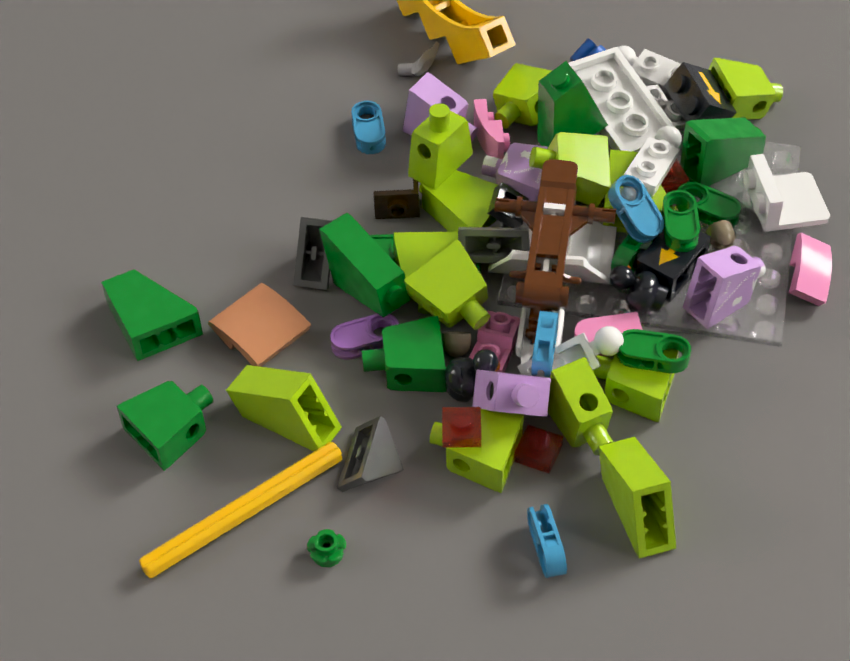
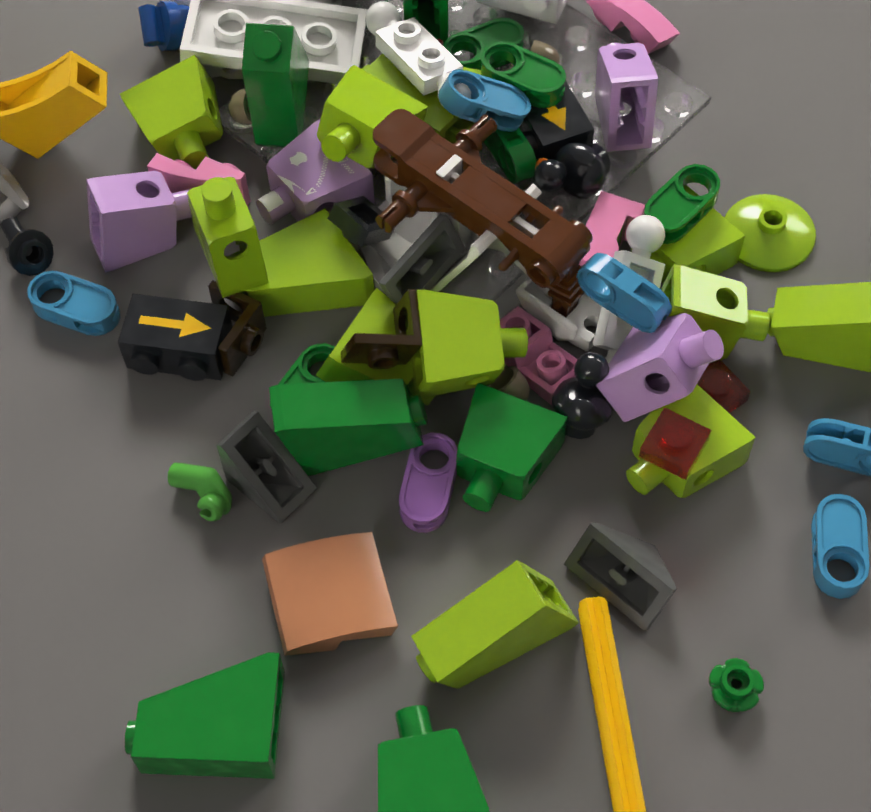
camera: 60 degrees left, 10 degrees up
(286, 247) = (206, 481): none -> bright green arm
(371, 170) = (174, 337): none -> black brick
(387, 89) = (28, 250): none -> black plate
(411, 250) = (388, 350): none -> dark brown bracket
(476, 559) = (841, 534): none -> dark azure piece
(698, 439) = (776, 245): none -> lime dish

